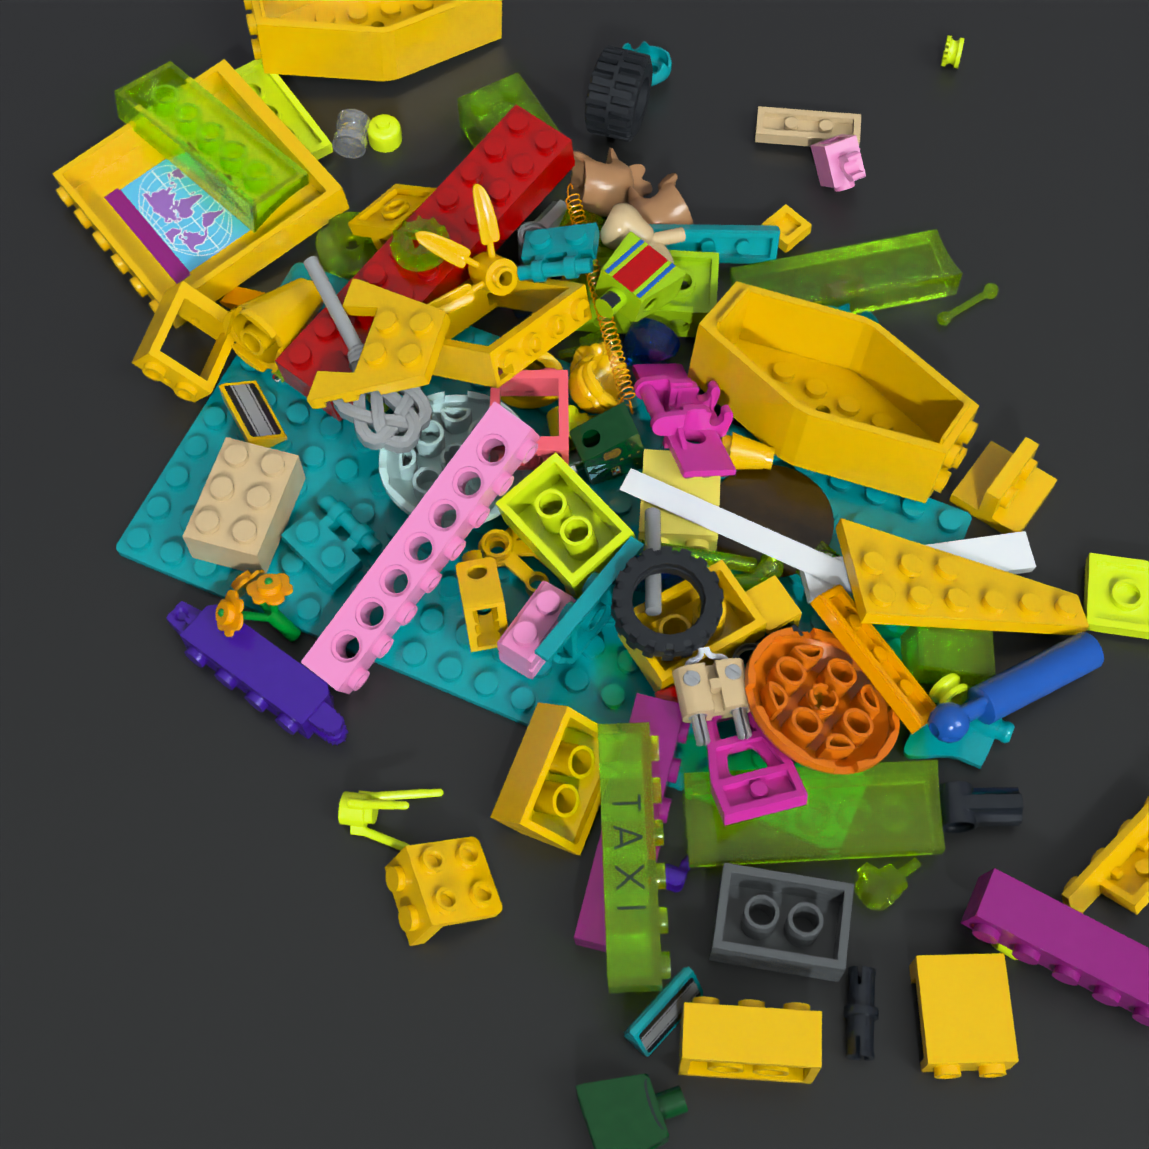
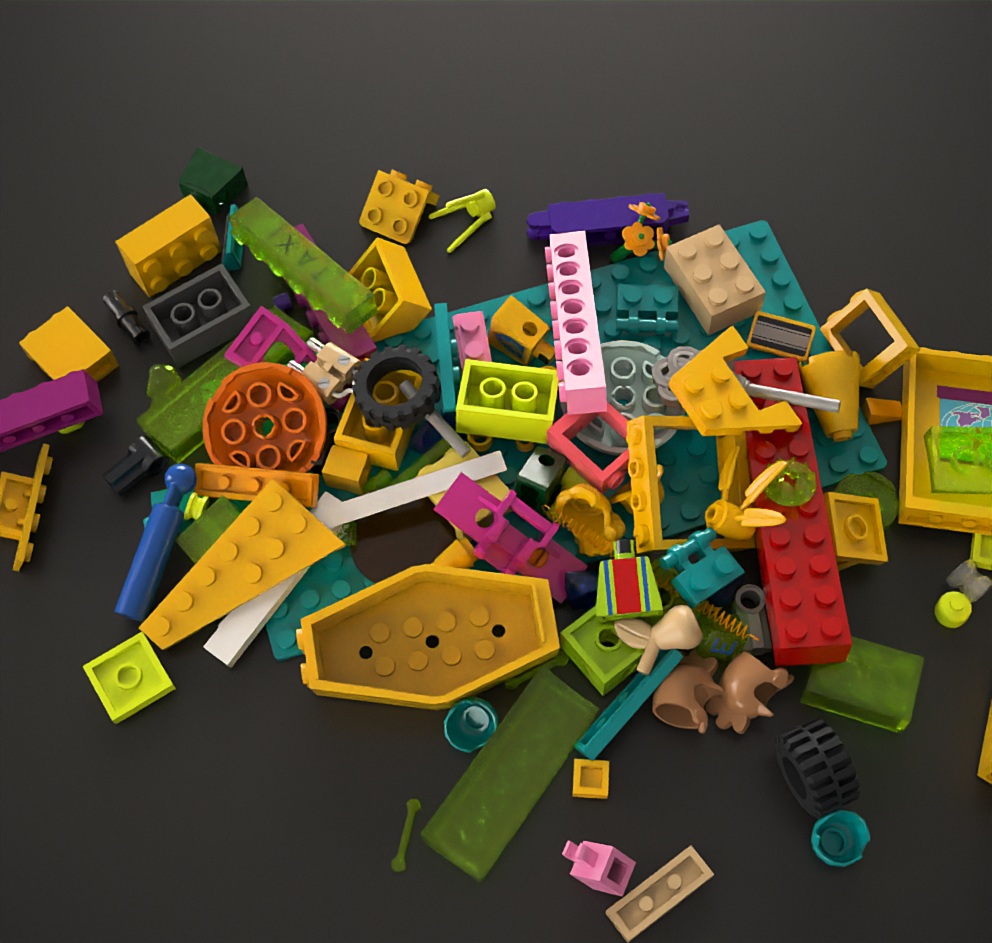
camera: 140 degrees right, 0 degrees up
(1004, 487) = (267, 694): yellow bracket -> none

